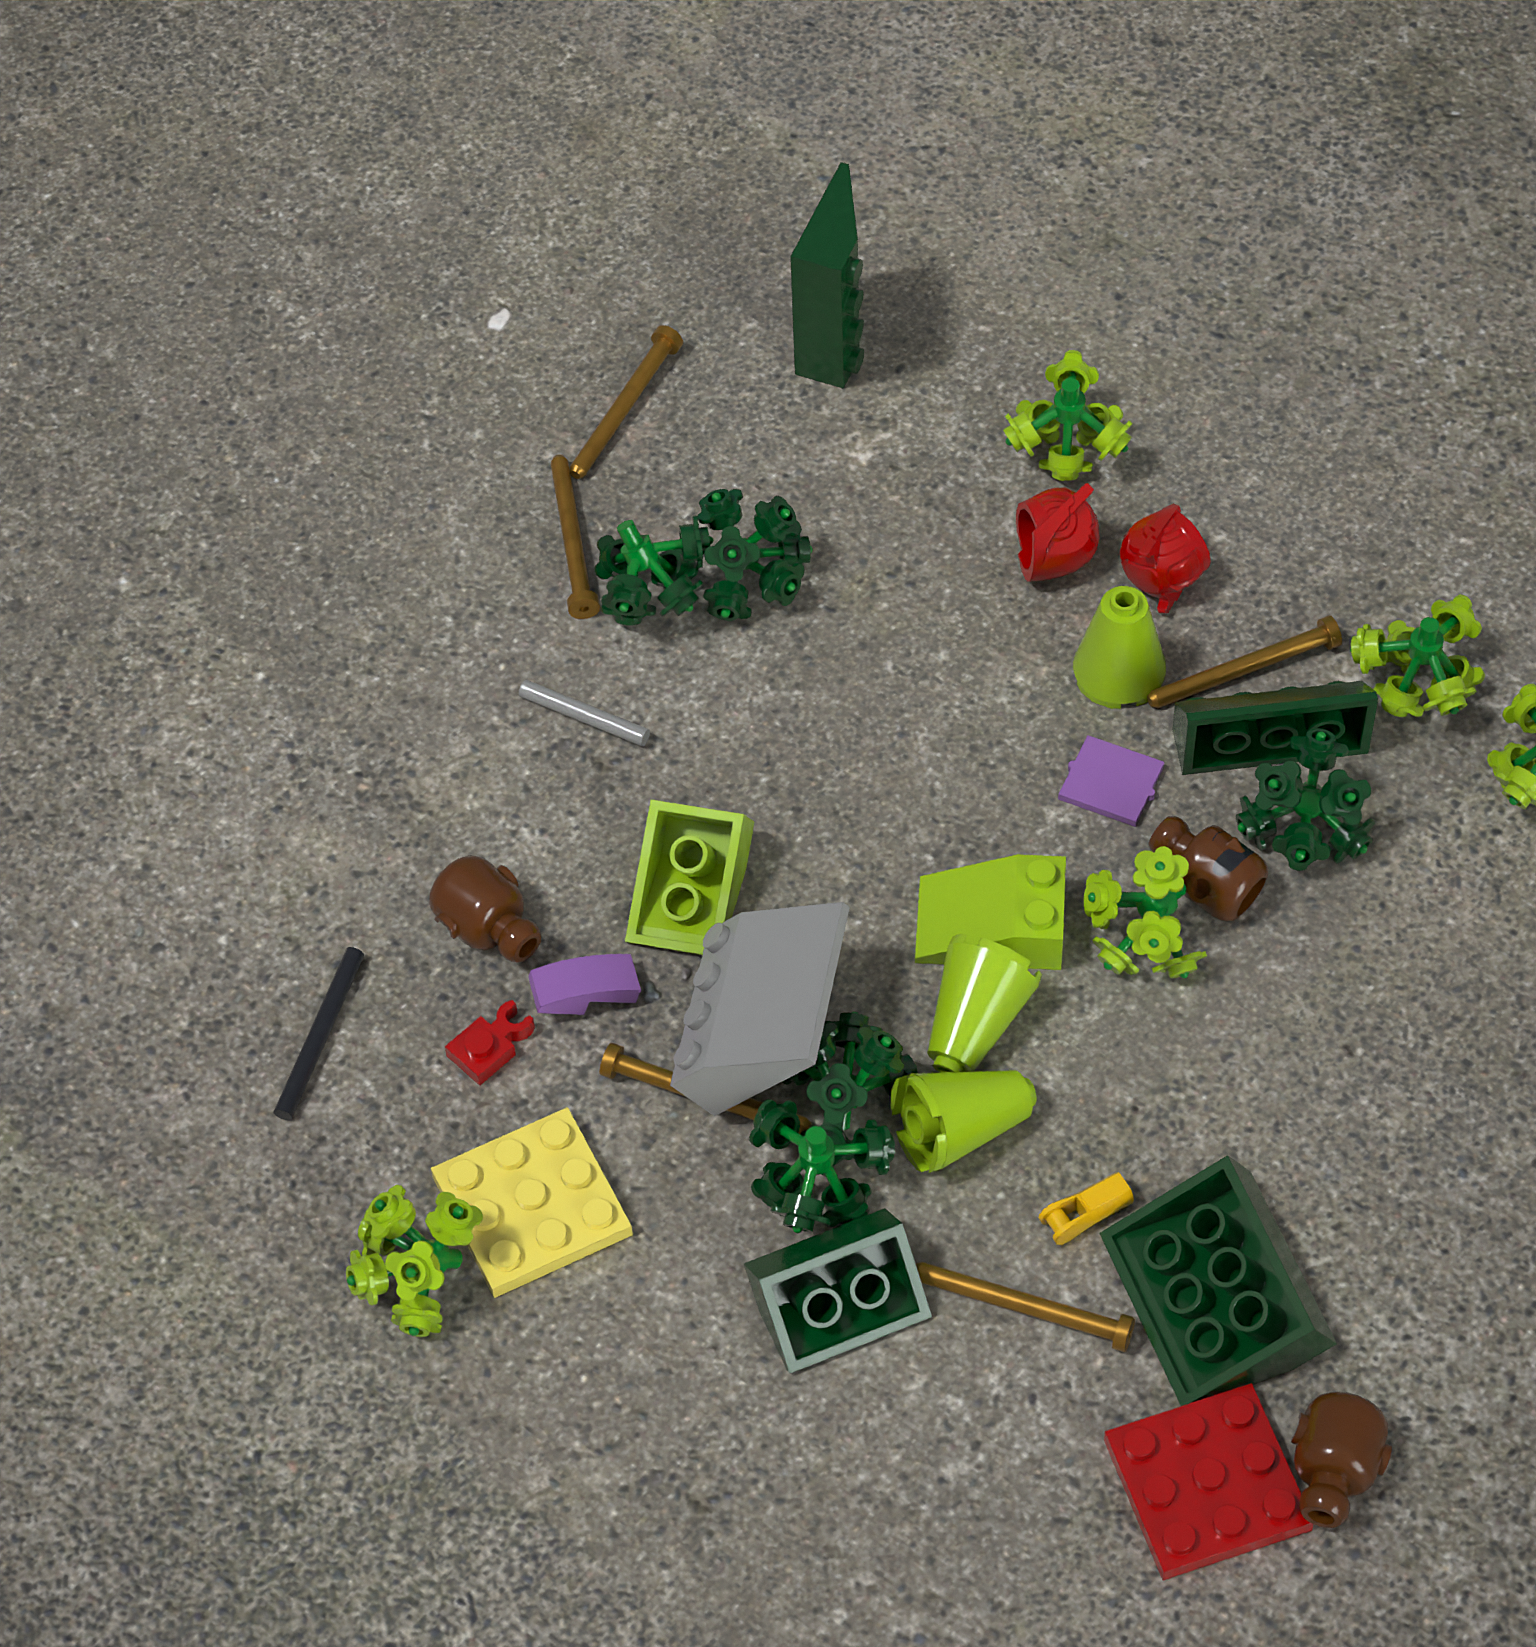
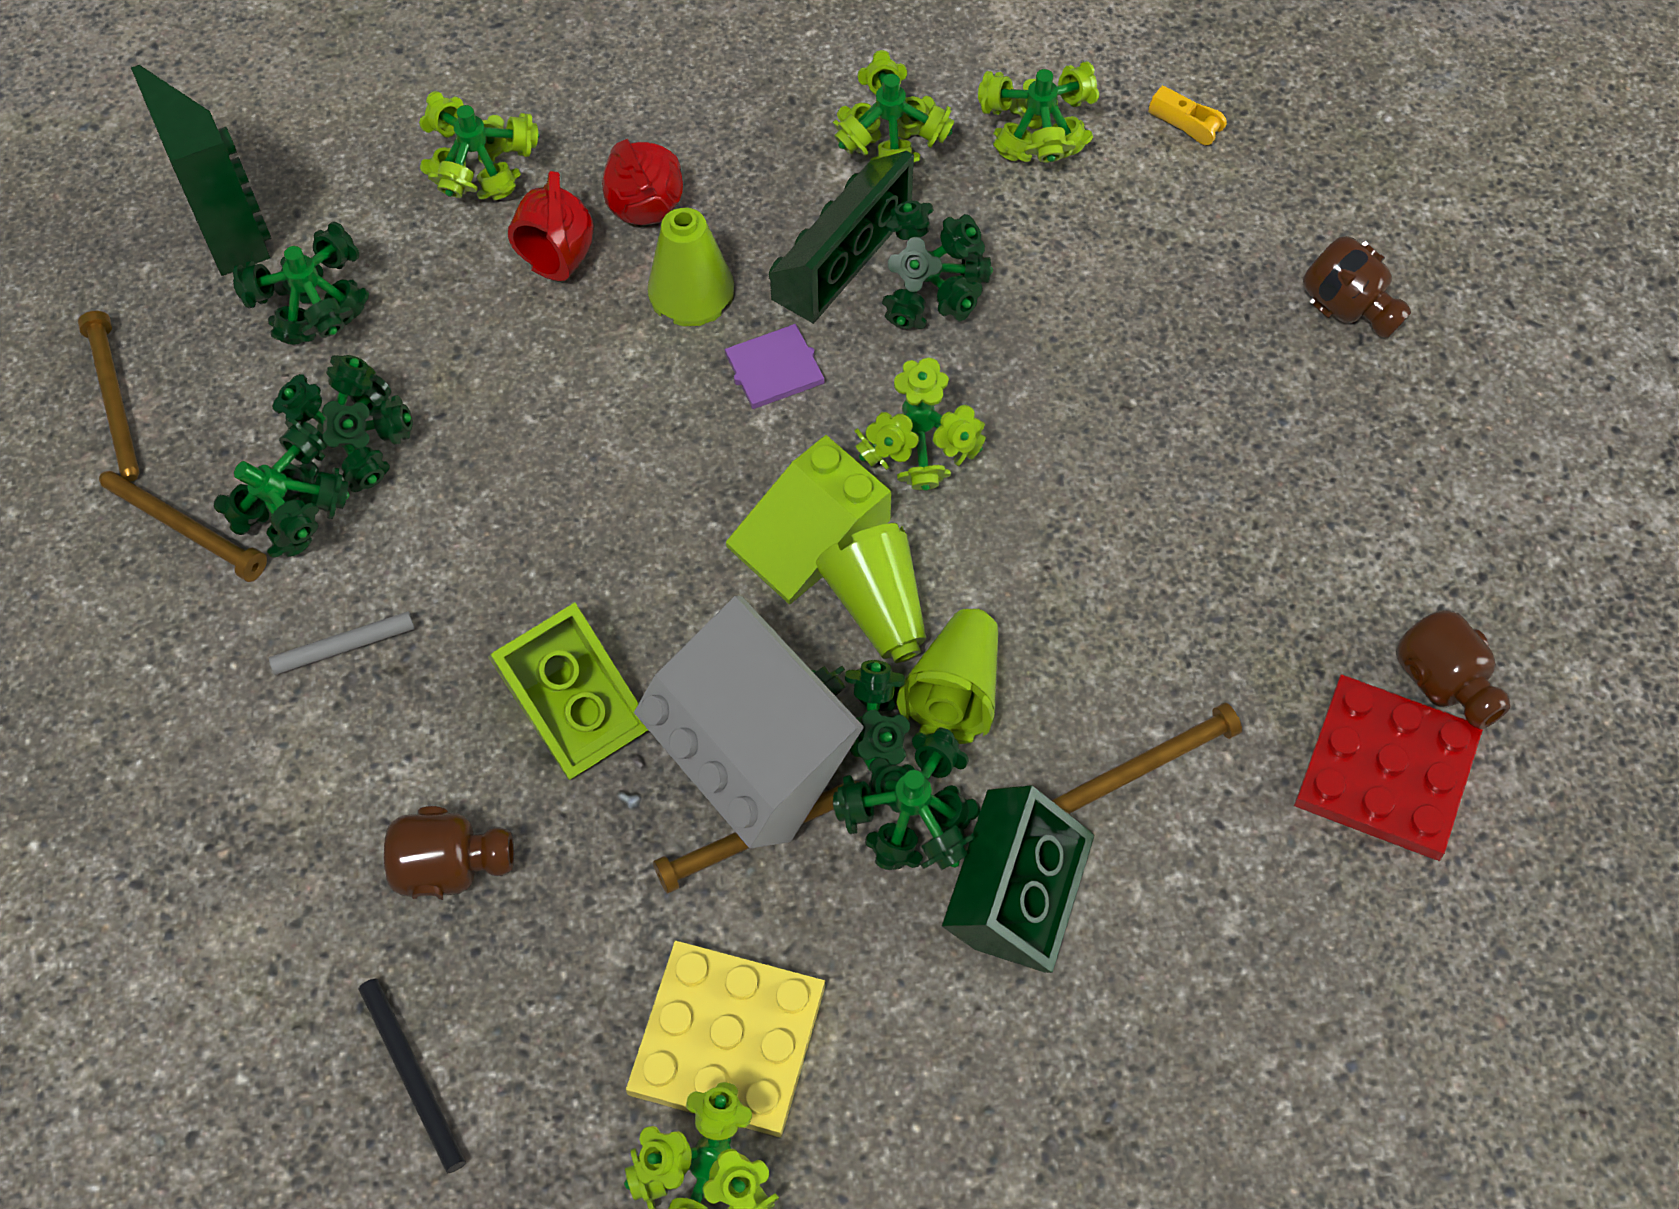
camera: 50 degrees left, 5 degrees up
(487, 1047) = (556, 957): red plate -> none
(575, 982) = (577, 838): medium lavender slope -> none
(835, 422) = (298, 279): none -> dark green plant
(1091, 1204) = (1104, 657): yellow bar -> none
(1216, 1284) = (1246, 633): dark green slope -> none
(1222, 871) = (915, 343): reddish brown piece -> none
(1325, 634) = (801, 155): pearl gold bar -> none

